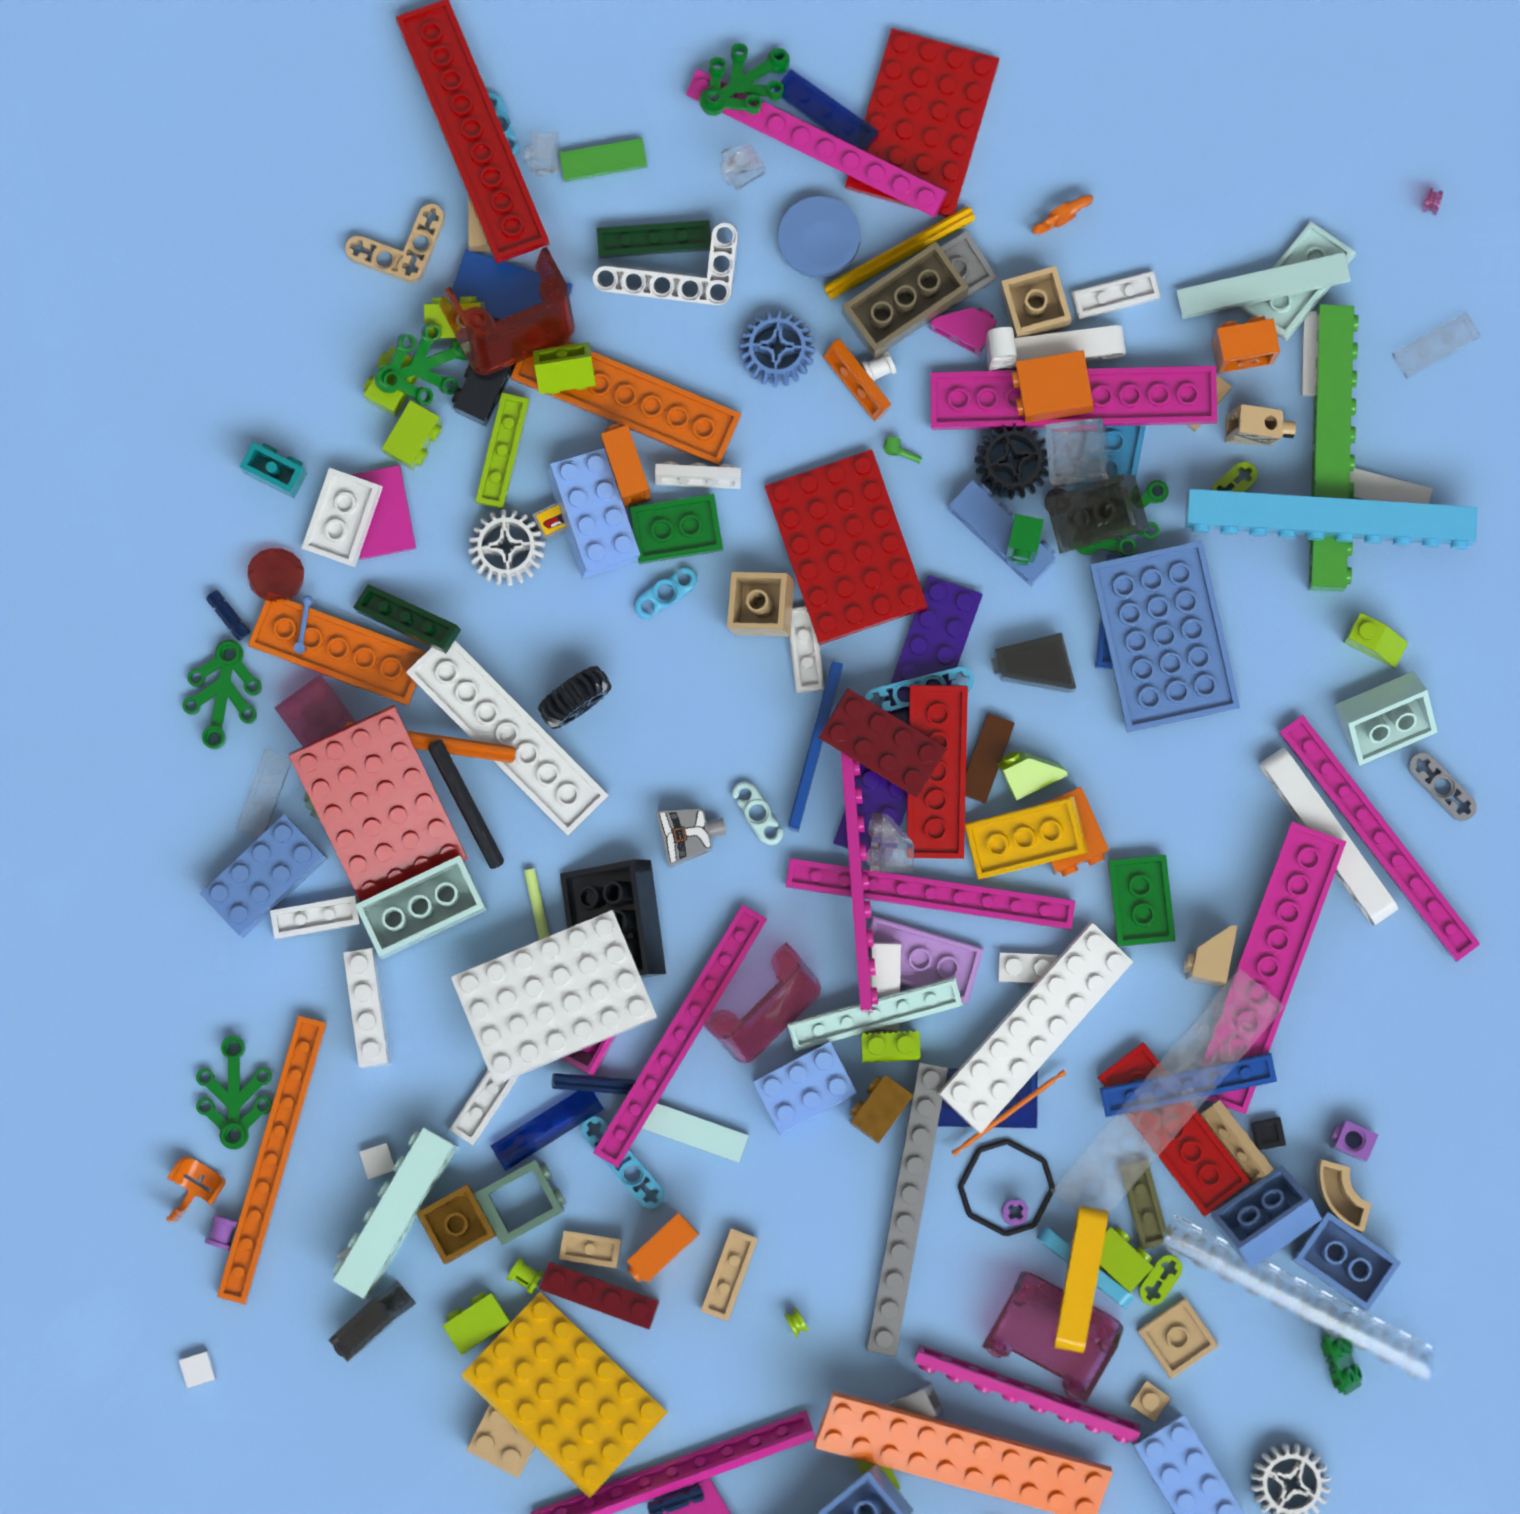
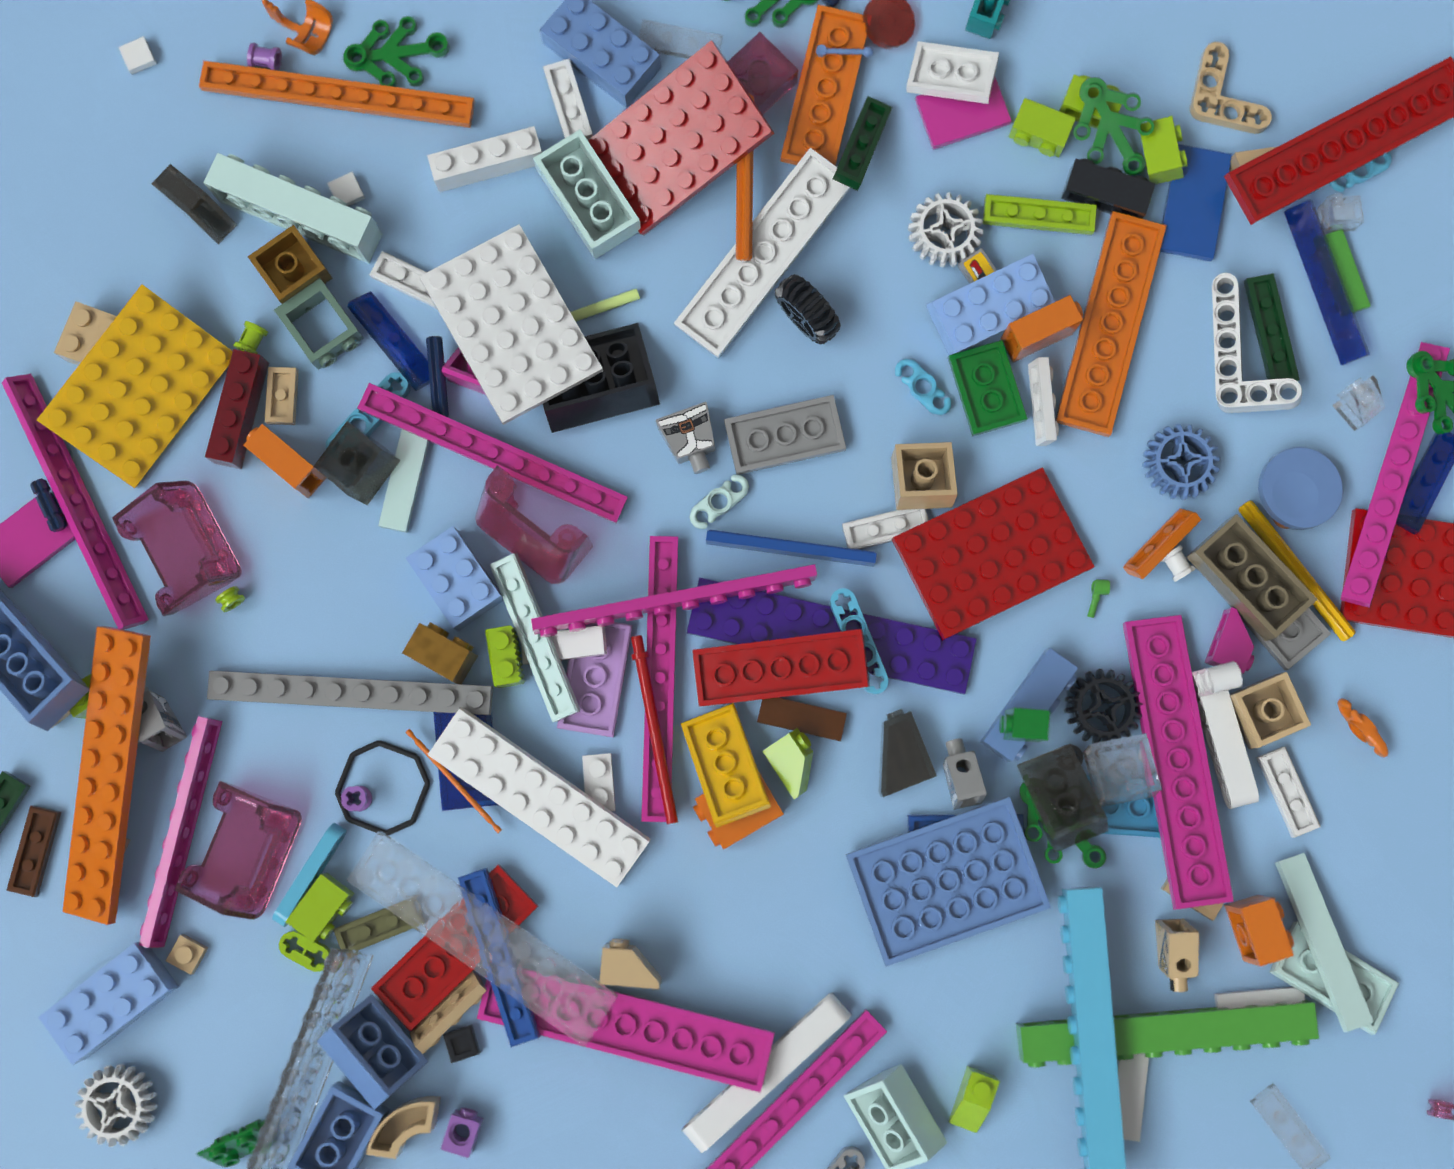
camera: 80 degrees right, 0 degrees up
(465, 804) = (690, 220): black axle -> none
(476, 1323) = (201, 300): lime brick -> none
(502, 343) = (1159, 209): clear red windscreen -> none
(564, 368) = (1129, 255): lime brick -> none
(612, 177) = (1326, 282): none -> clear blue tile
(673, 1176) = (356, 463): none -> clear smoke slope
(698, 738) = (785, 434): none -> light grey plate
(729, 1274) = (270, 529): tan plate -> none
(734, 1368) = (180, 542): none -> clear pink windscreen
(882, 743) = (799, 608): dark red plate -> none
(890, 846) = (697, 631): clear slope -> none
(981, 904) = (640, 658): none -> red bar
(1053, 387) = (1185, 736): orange brick -> none
(1076, 607) = (964, 788): none -> light grey torso
(1081, 1279) = (290, 871): yellow beam -> none
(1141, 900) = (678, 889): green plate -> none
(1177, 1338) = (251, 974): tan tile -> none
(1232, 475) = (1119, 929): lime beam -> none

